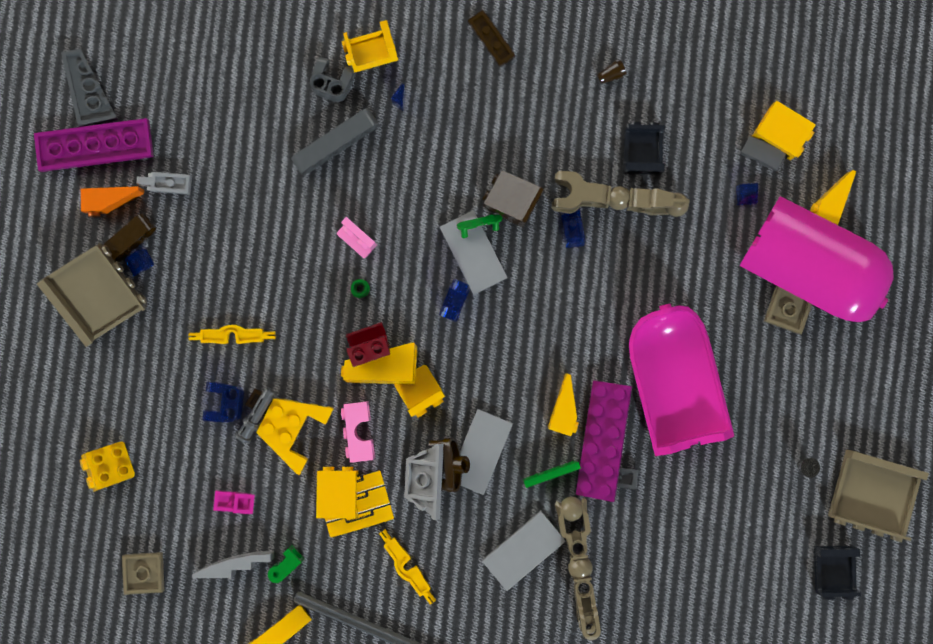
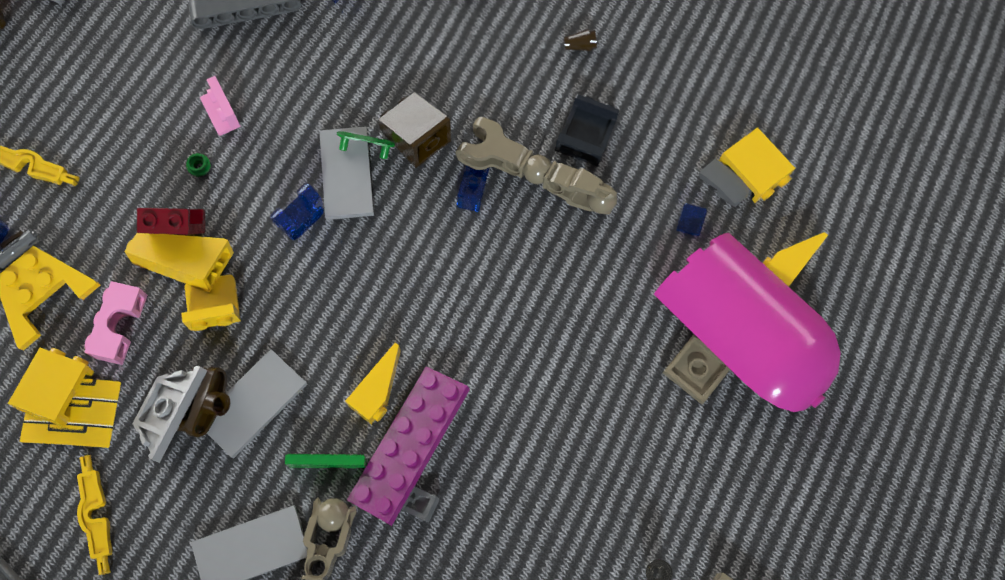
camera: 10 degrees right, 15 degrees down
(678, 380) = (529, 401): dark pink panel -> none

